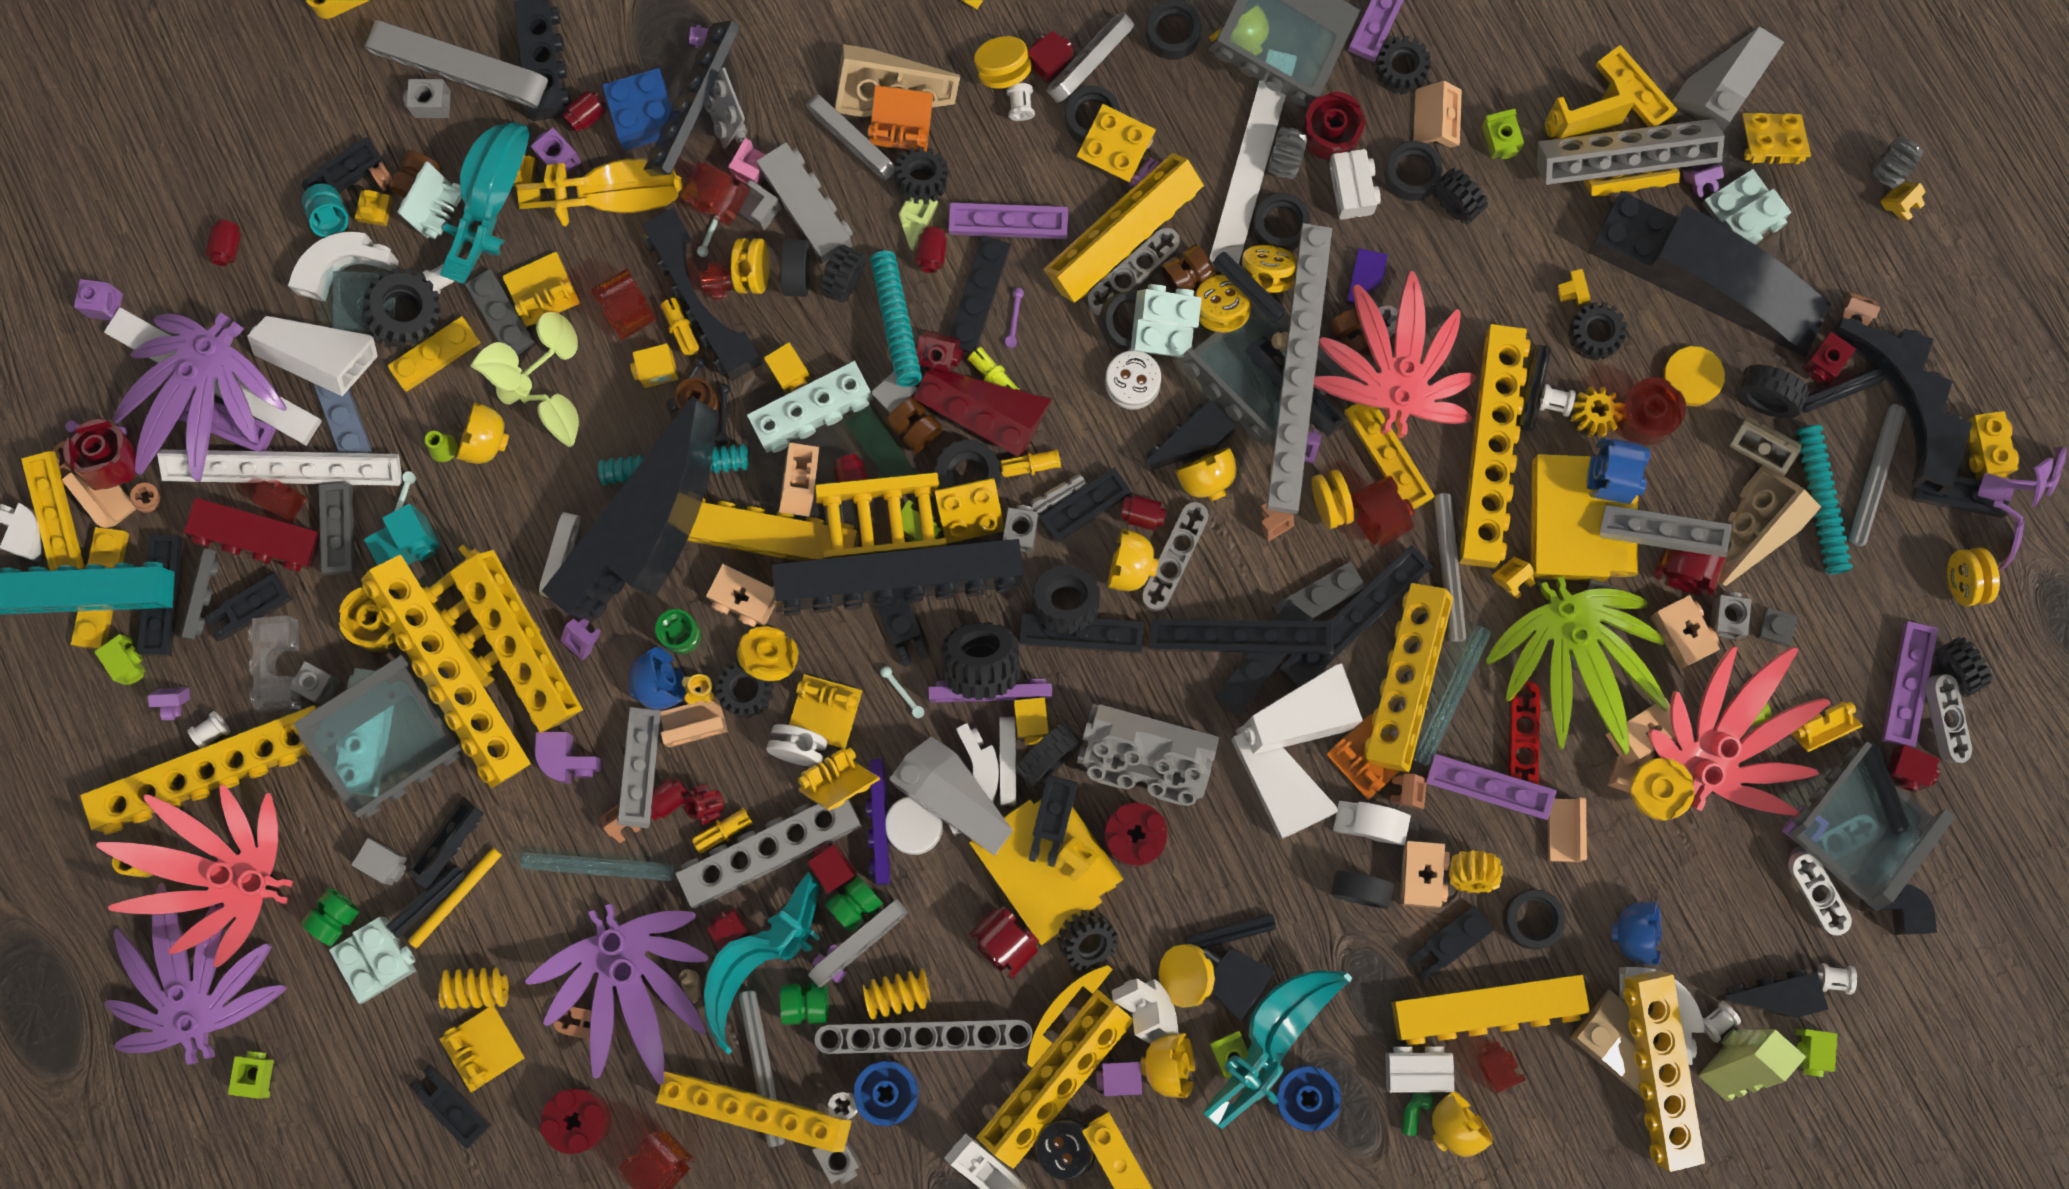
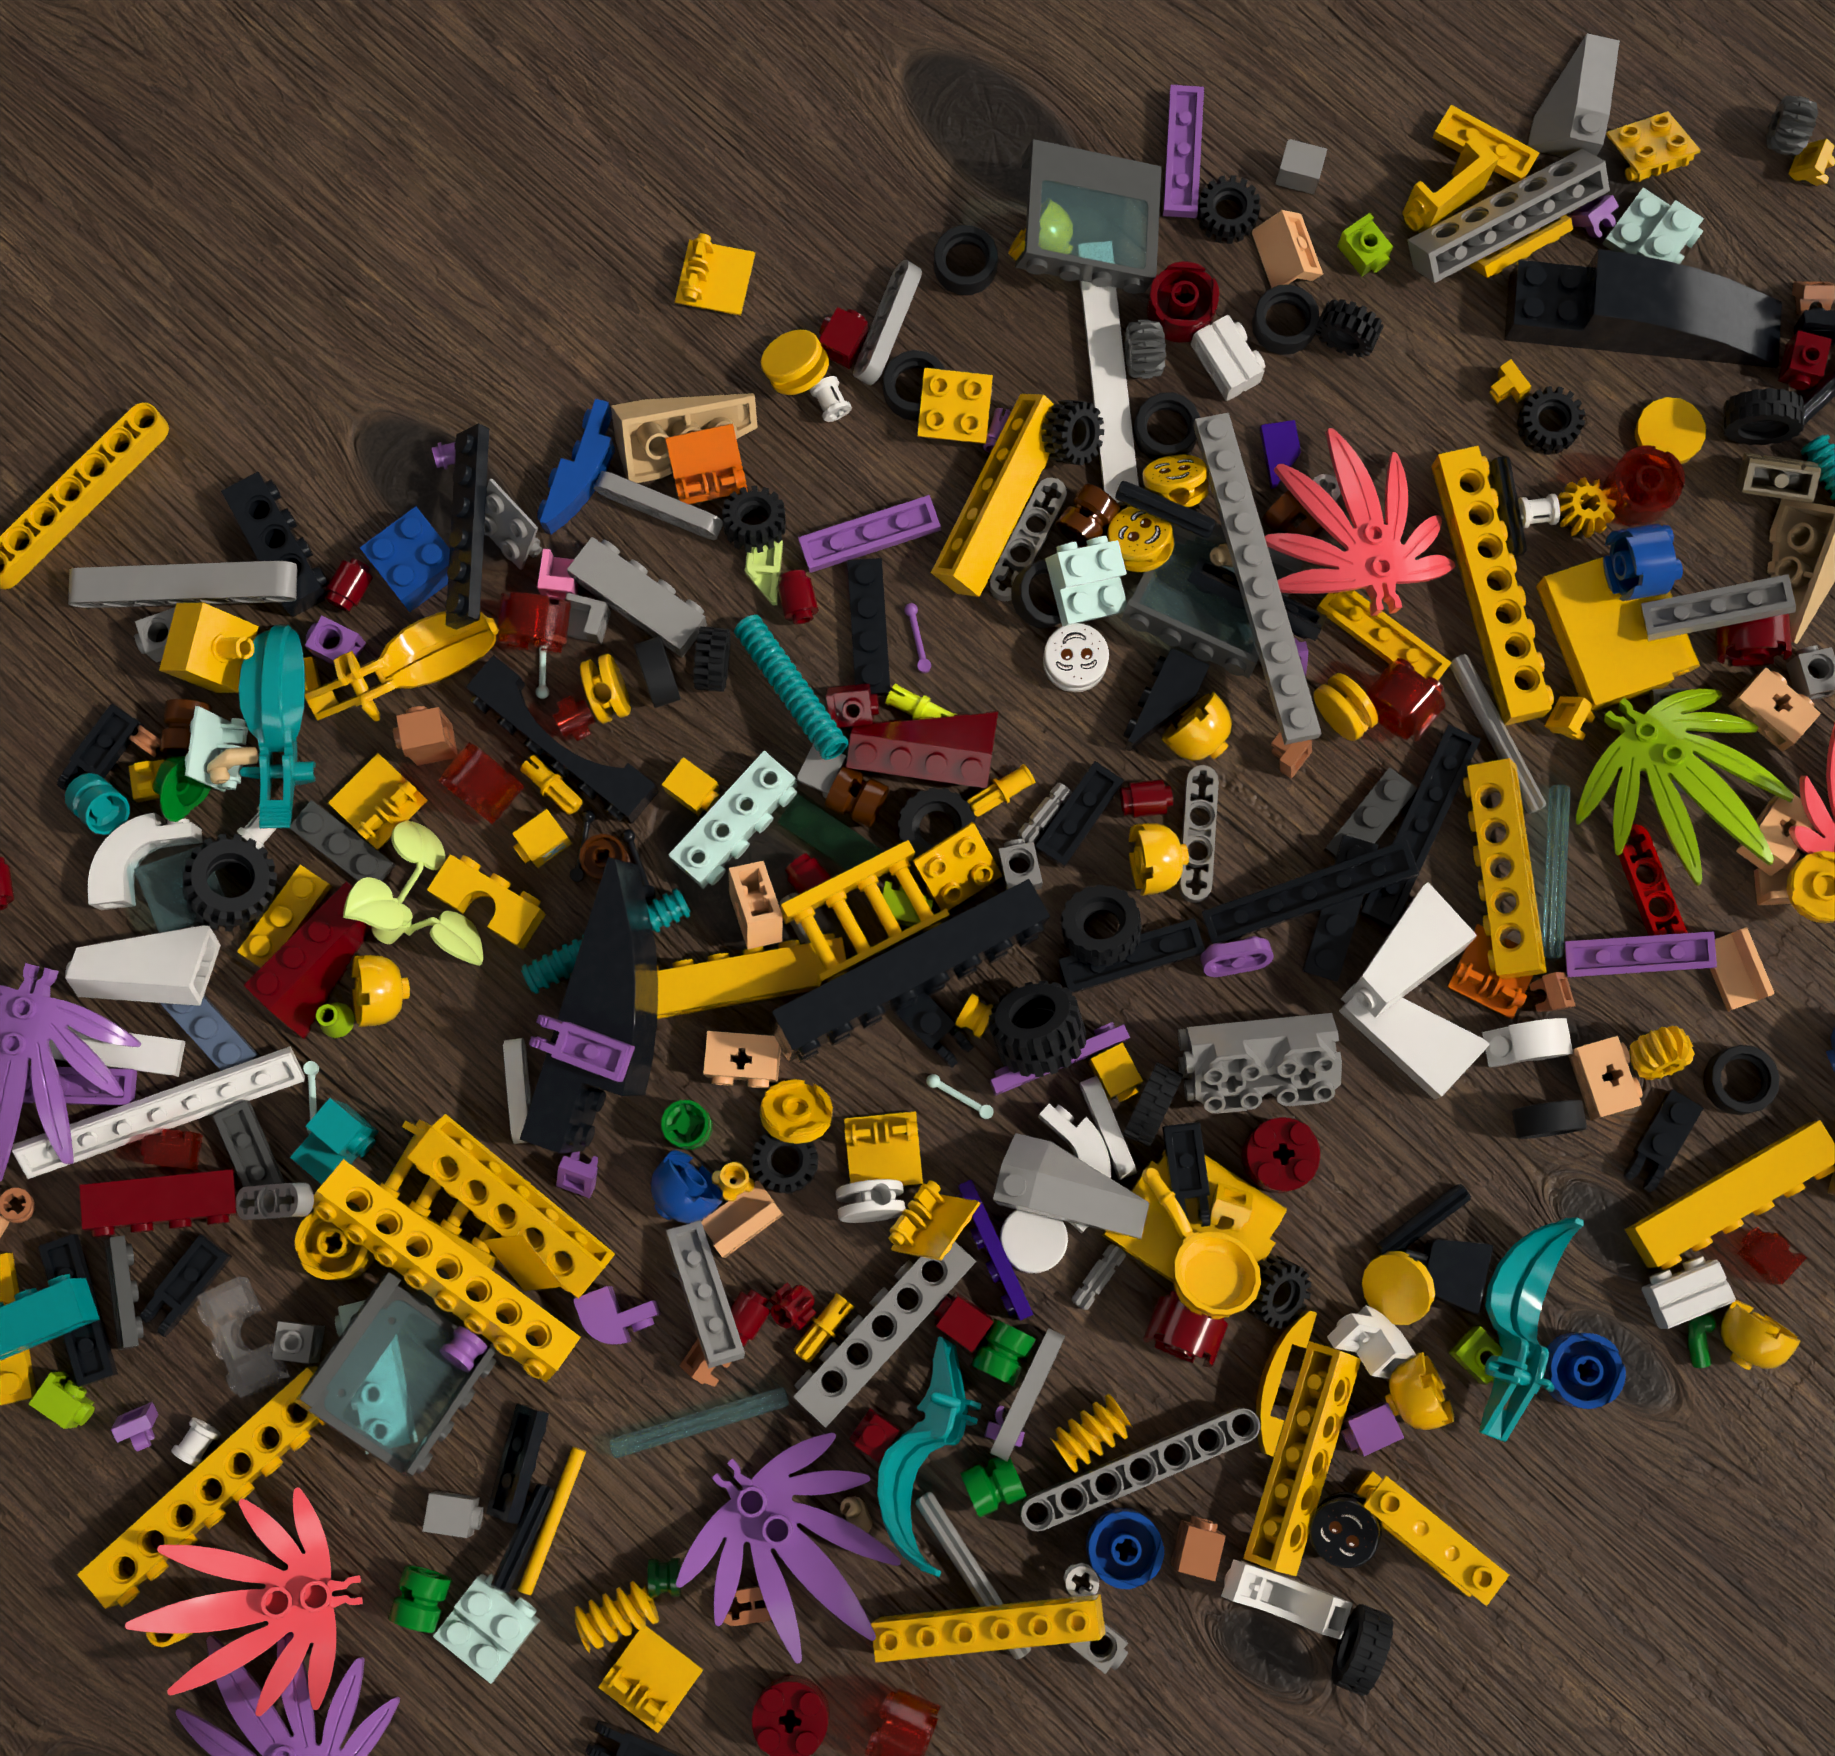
camera: 25 degrees left, 0 degrees up
(337, 567) = (283, 1201): none -> light grey beam
(388, 225) = (176, 791): none -> green piece
(436, 397) = (309, 964): none -> dark red wedge
(437, 212) = (229, 758): none -> tan arm
(437, 737) = (463, 1349): none -> medium lavender wheel
(455, 118) = (207, 647): none -> yellow brick
(508, 689) = (523, 1263): none -> yellow sticker
(519, 972) = (663, 1577): none -> dark green wheel
(578, 378) = (461, 883): none -> yellow arch
(595, 250) = (425, 735): none -> nougat brick
(616, 538) = (585, 1048): none -> medium lavender hinge
(791, 94) = (575, 480): none -> blue slope
(936, 632) = (974, 1016): none -> yellow wheel
(943, 1115) = (1198, 1548): none -> nougat brick
(954, 875) = (1098, 1277): none -> light grey axle
(1038, 900) = (1211, 1268): none -> yellow piece
(1165, 665) = (1236, 957): none -> medium lavender plate
(1190, 193) = (1060, 427): none -> black tyre
(1476, 51) = (1301, 166): none -> light grey panel

